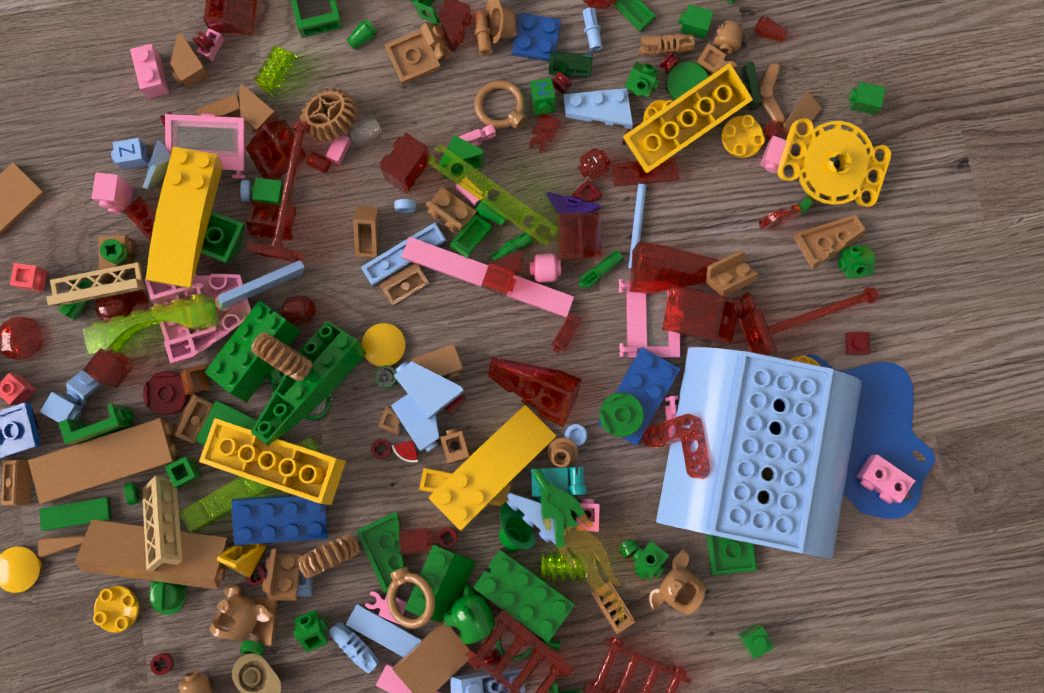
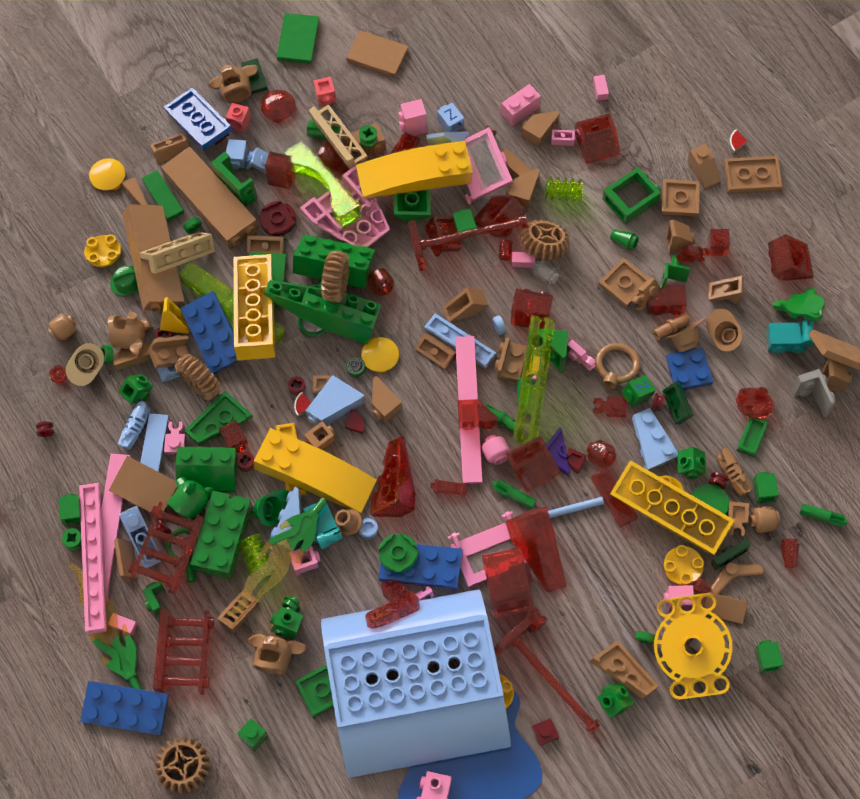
camera: 75 degrees right, 15 degrees down
(154, 667) = (68, 294): dark red bush -> none
(183, 472) = (222, 252): green brick -> none
(194, 379) = (295, 232): dark orange panel -> none
(203, 41) = (560, 130): dark red bush -> none
(245, 190) = (457, 206): light blue tile -> none
(260, 284) = (387, 246): light blue tile -> none
(399, 578) = (201, 434): medium nougat piece -> none
(427, 388) = (355, 393): light blue slope -> none
(471, 236) = (496, 383): green tile -> none
(592, 29) = (717, 409): light blue axle -> none
(730, 274) = (556, 596): medium nougat bracket -> none
(780, 217) = (621, 617): clear red tile -> none

